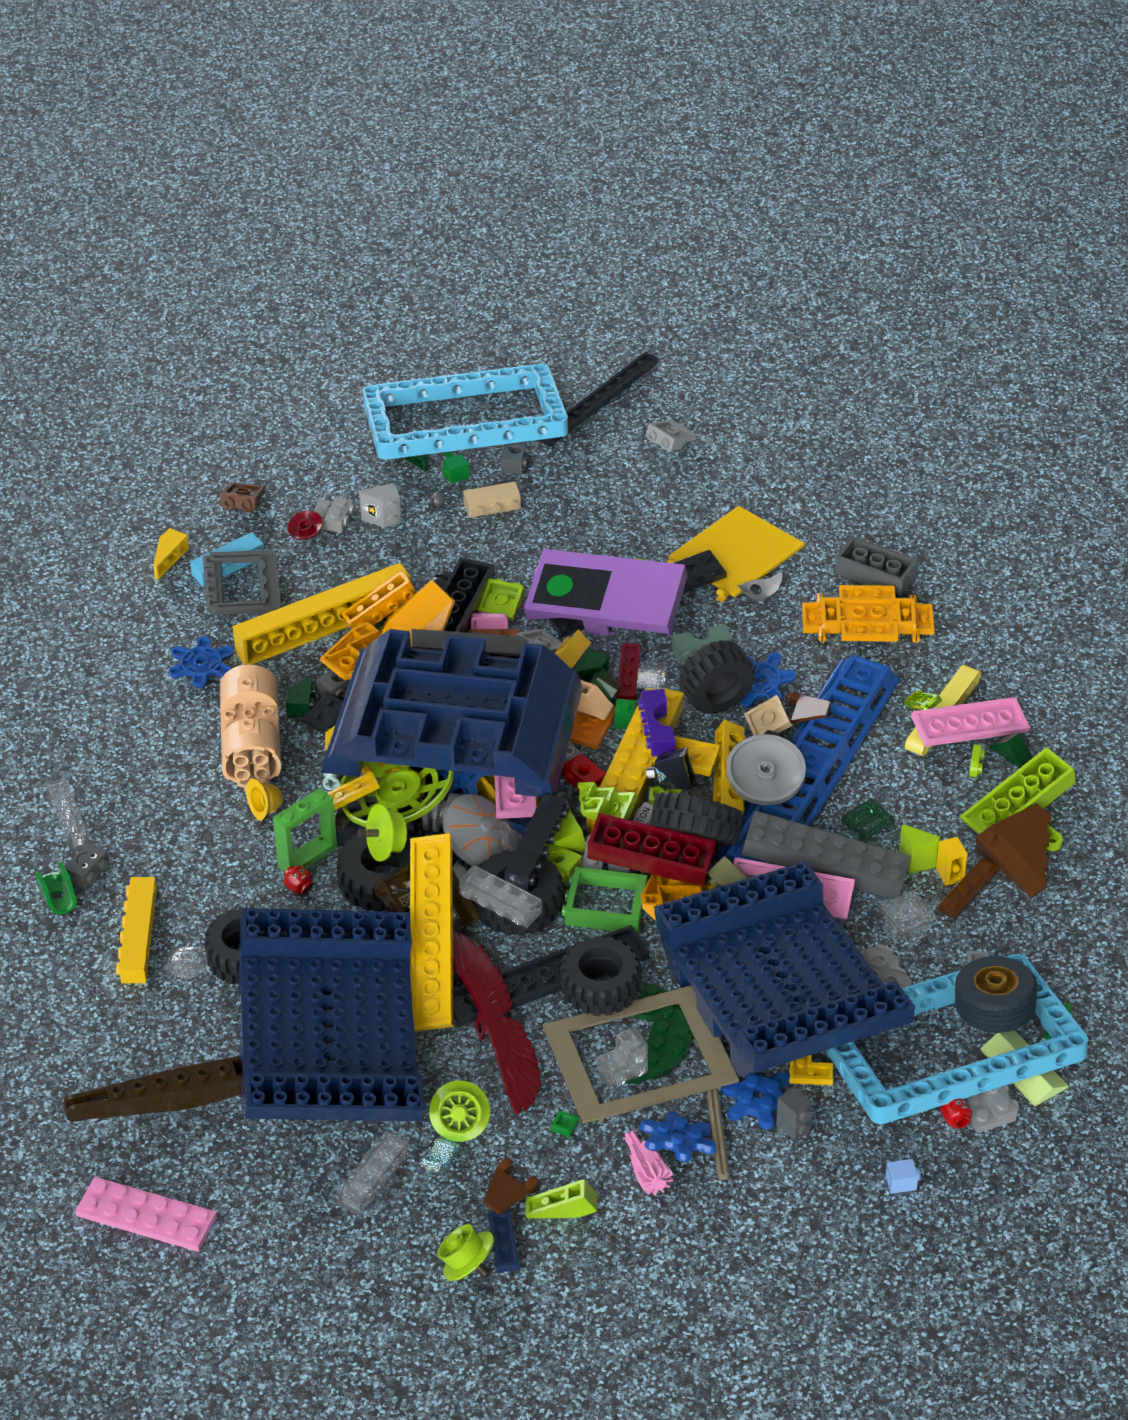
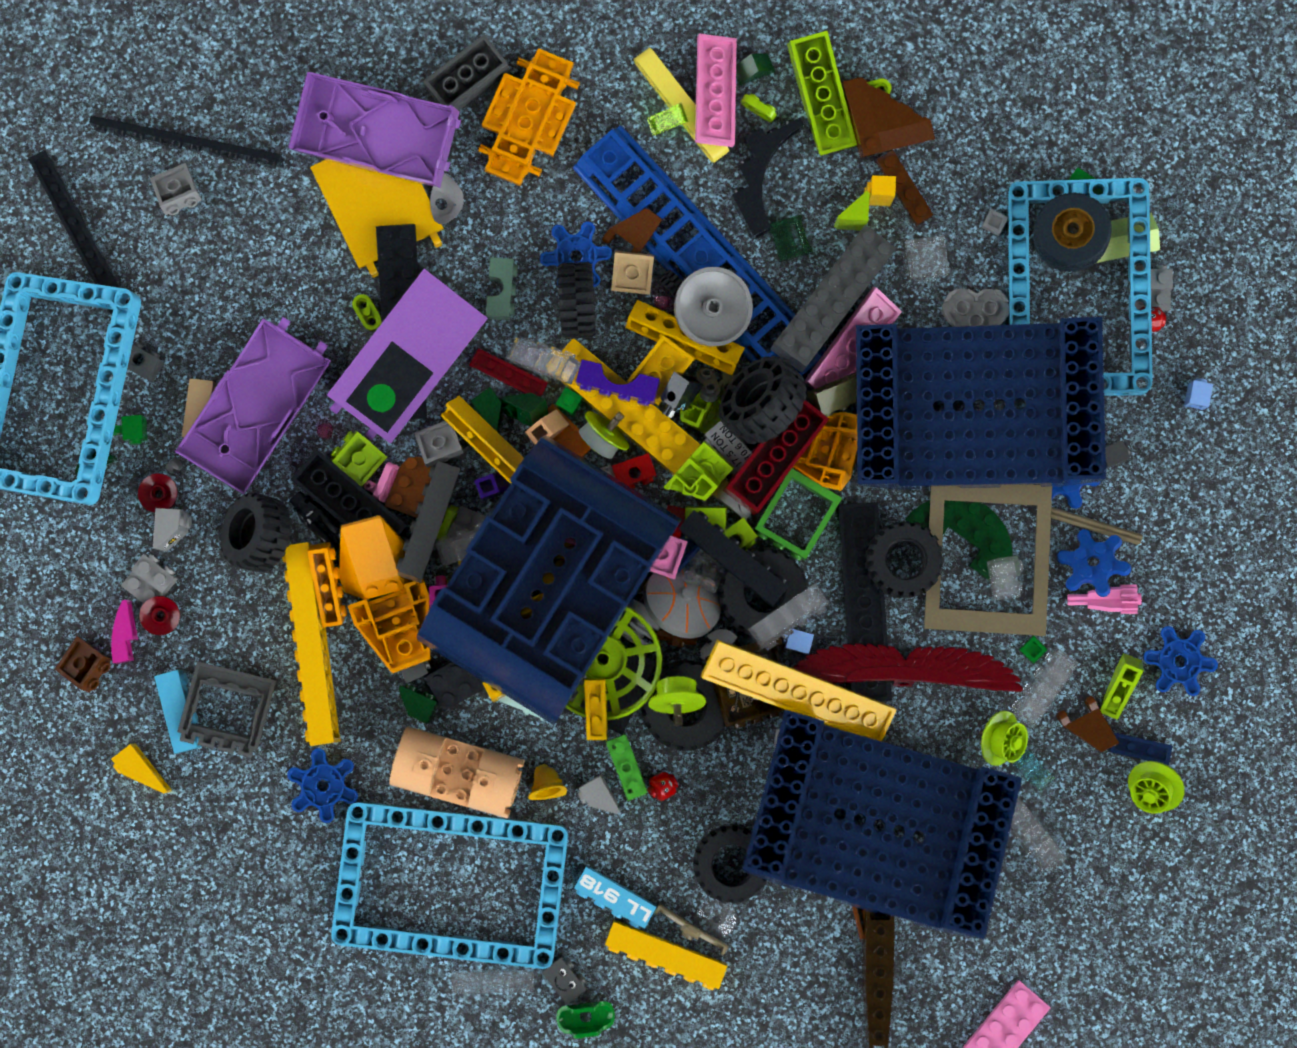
camera: 70 degrees left, 40 degrees up
(156, 834) = (444, 945): none -> medium azure beam
(167, 940) = (690, 930): none -> dark tan plate
(178, 878) = (615, 897): none -> medium azure brick
(268, 807) = (598, 795): none -> light grey slope
(279, 510) = (123, 633): none -> dark pink slope
(402, 545) = (255, 532): none -> black tyre
(411, 495) = (148, 492): none -> dark red dish
(484, 935) = (799, 641): none -> light blue brick
(508, 521) = (254, 405): none -> medium lavender piece
(518, 577) = (325, 430): none -> clear pink hinge
(528, 1139) = (1044, 688): none -> clear brick
(605, 734) = (603, 435): none -> piece
(608, 1234) = (1193, 663): none -> blue plate
(715, 434) = (194, 144): none -> black plate
(792, 522) = (374, 129): none -> medium lavender piece
(912, 775) = (762, 148): none -> black arch

